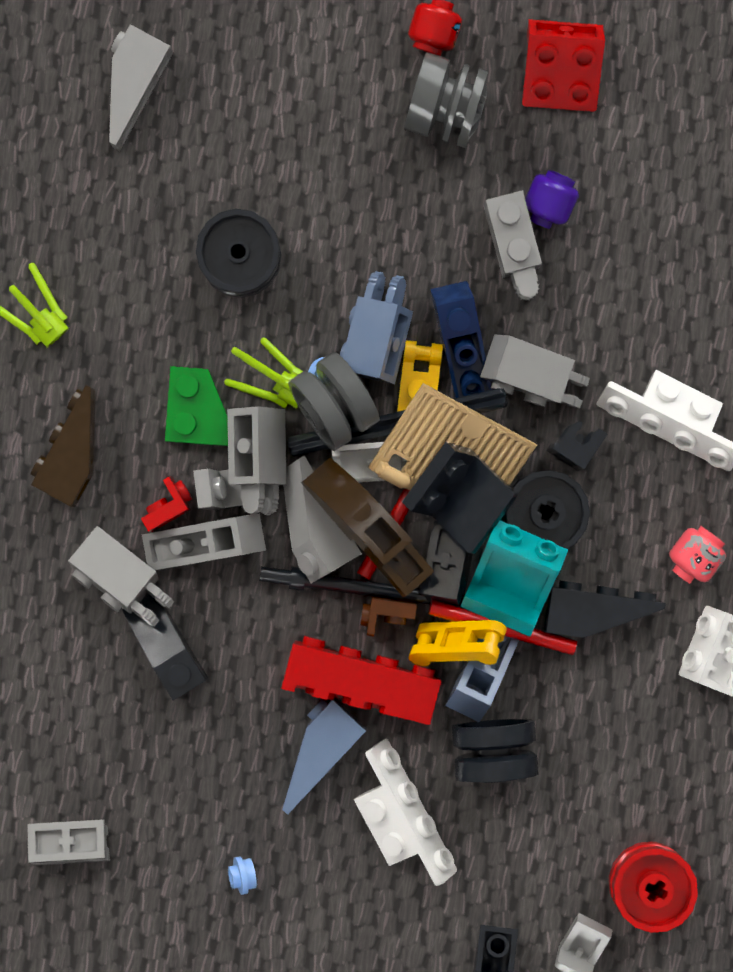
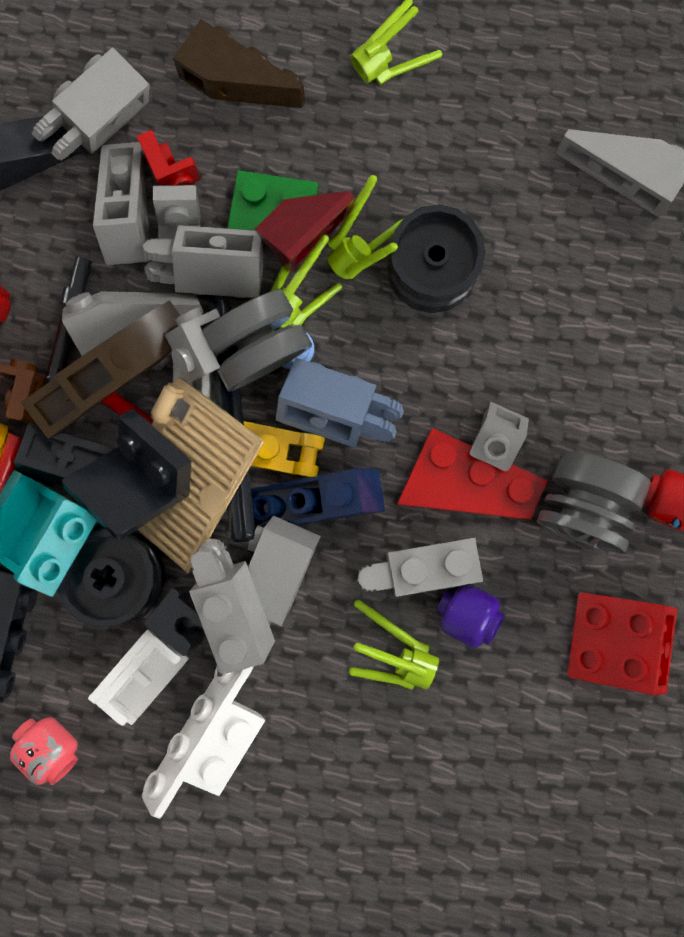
camera: 95 degrees right, 5 degrees down
(224, 370) = (300, 222): none -> dark red slope
(238, 329) = (353, 253): none -> lime plant
(343, 456) = (189, 346): none -> light grey bracket
(391, 183) = (500, 436): none -> light grey bracket
(432, 209) = (456, 481): none -> red wing
(565, 401) = (229, 609): none -> light grey hinge
(599, 245) = (413, 666): none -> lime plant
(628, 481) = (138, 678): none -> white hinge

